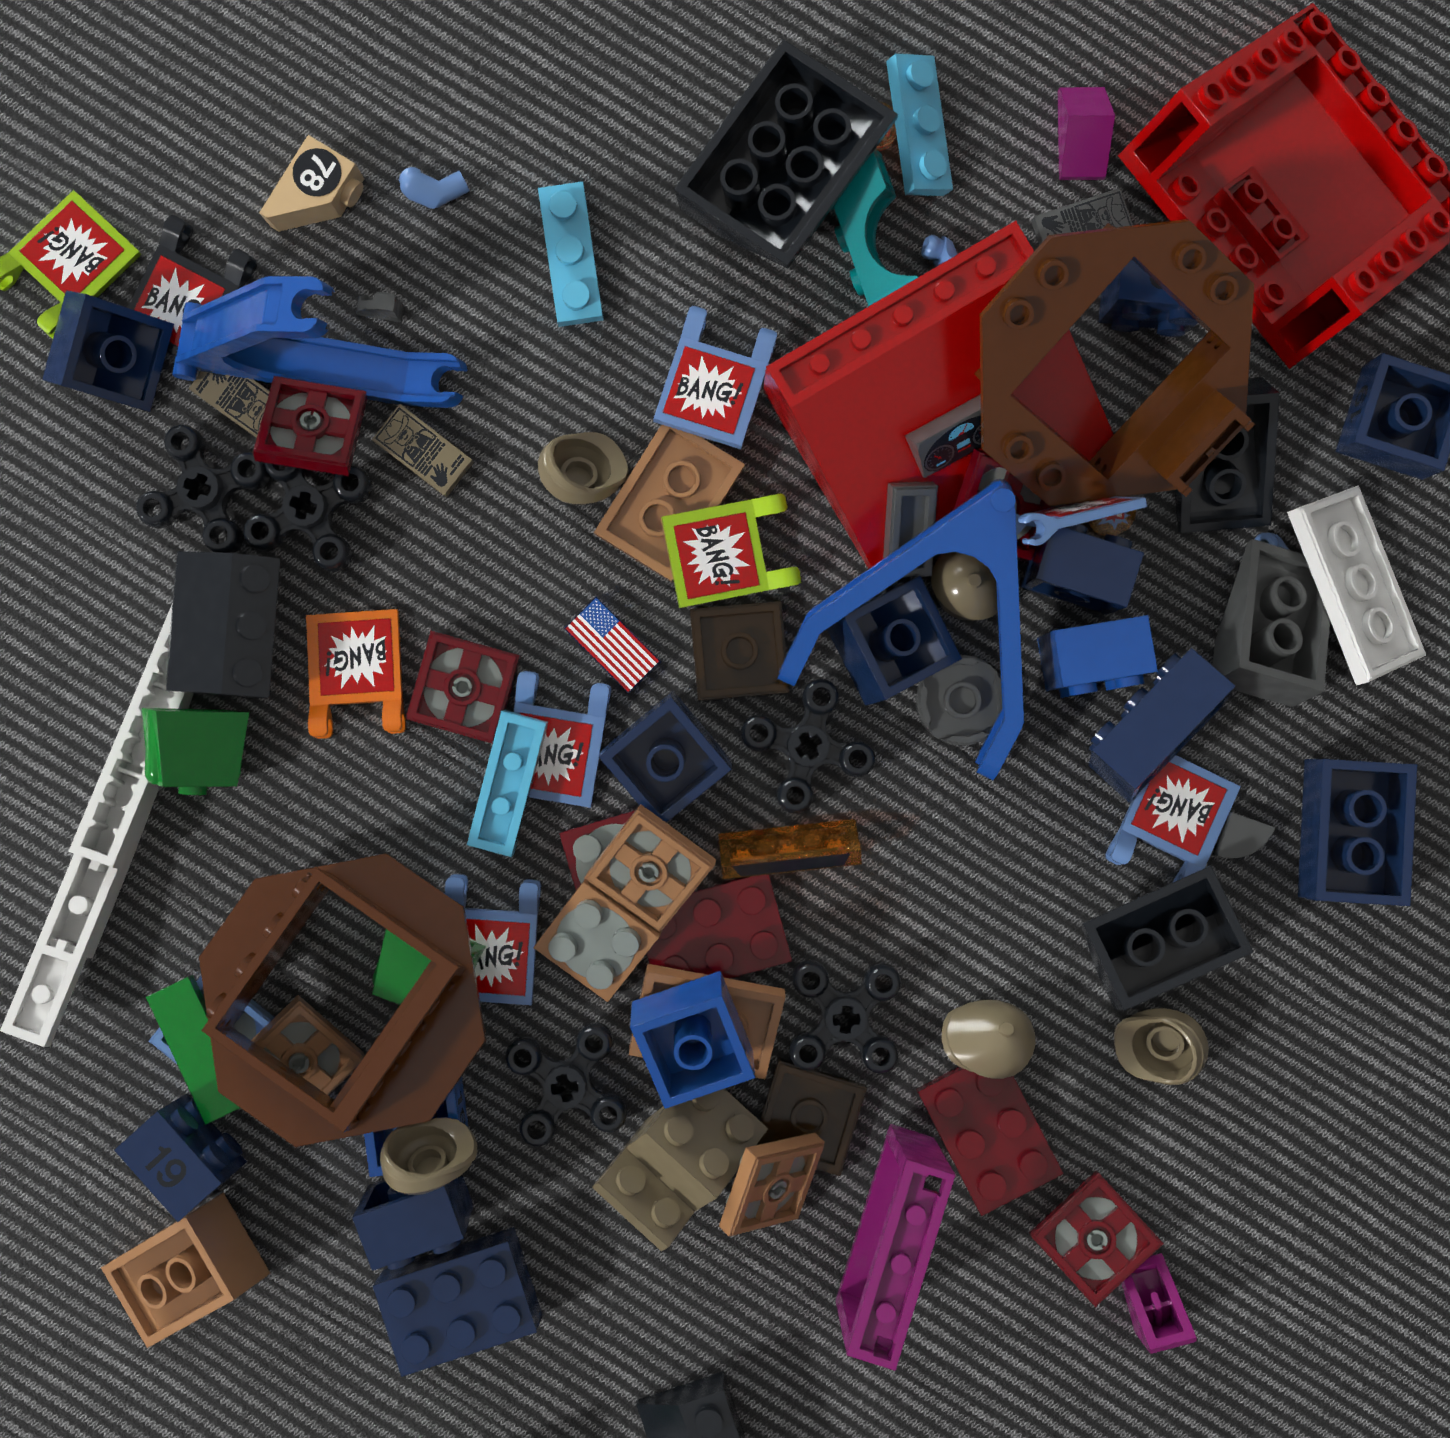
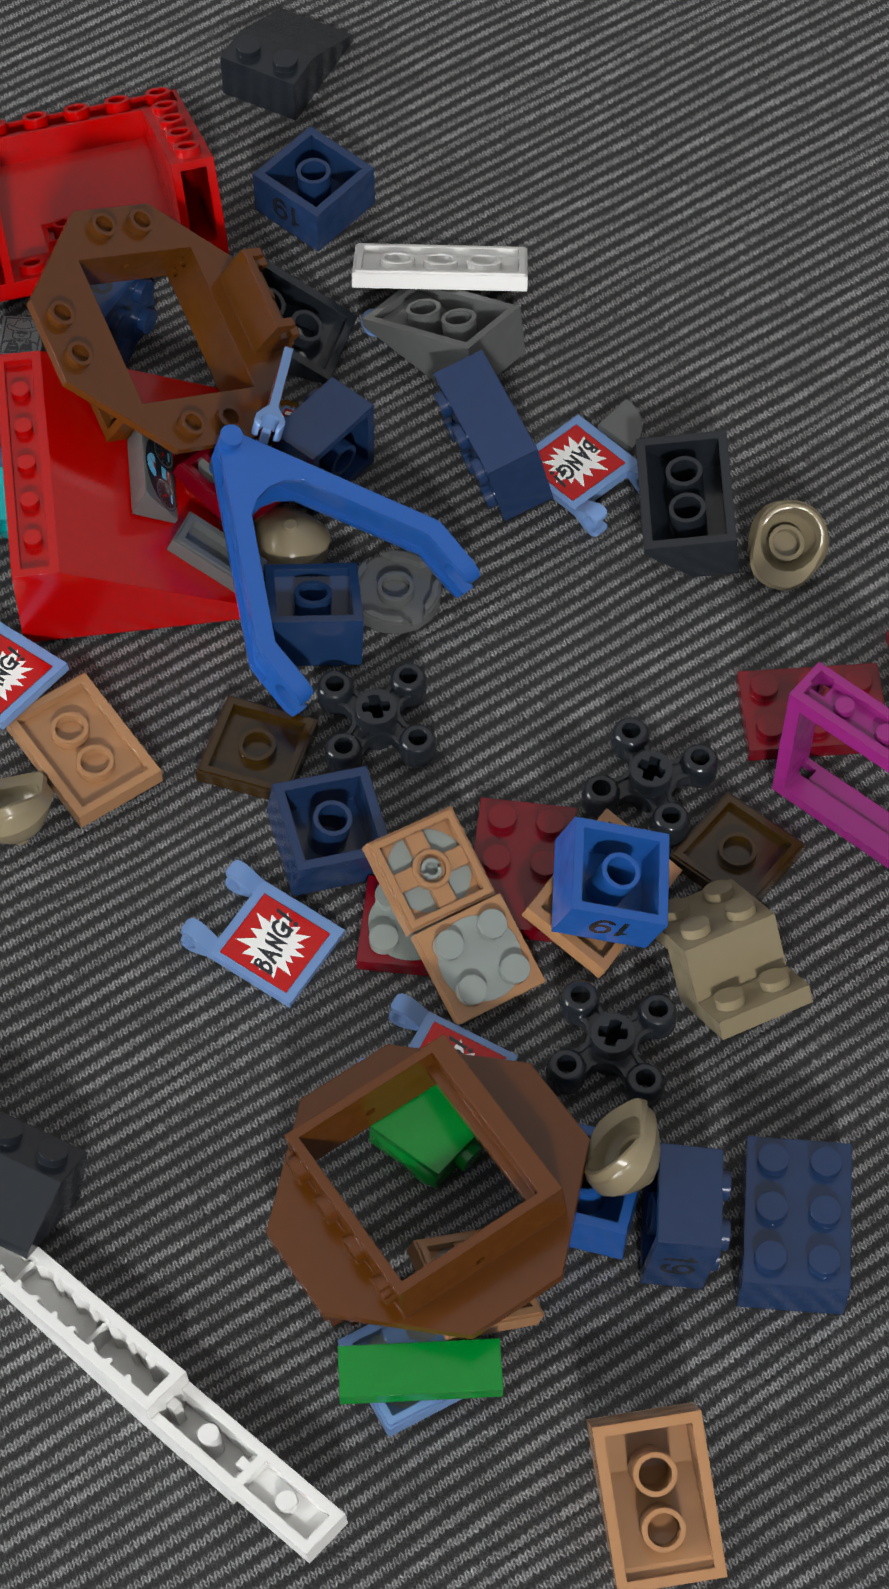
camera: 65 degrees left, 30 degrees down
(181, 1156) = (527, 1425): dark blue brick -> none
(193, 748) = (99, 1250): green torso -> none
(354, 662) = (91, 1087): flag -> none
(462, 686) = (169, 992): dark red piece -> none
(507, 783) = (284, 981): medium azure plate -> none
(612, 645) = (195, 851): tile -> none
(719, 551) = (155, 721): flag -> none
(771, 1183) = (785, 883): medium nougat piece -> none
(789, 849) = (470, 761): clear orange plate -> none
(989, 1038) = (722, 671): dark tan hat -> none
(1096, 653) = (408, 452): blue brick -> none
(1357, 831) = (655, 336): dark blue brick -> none

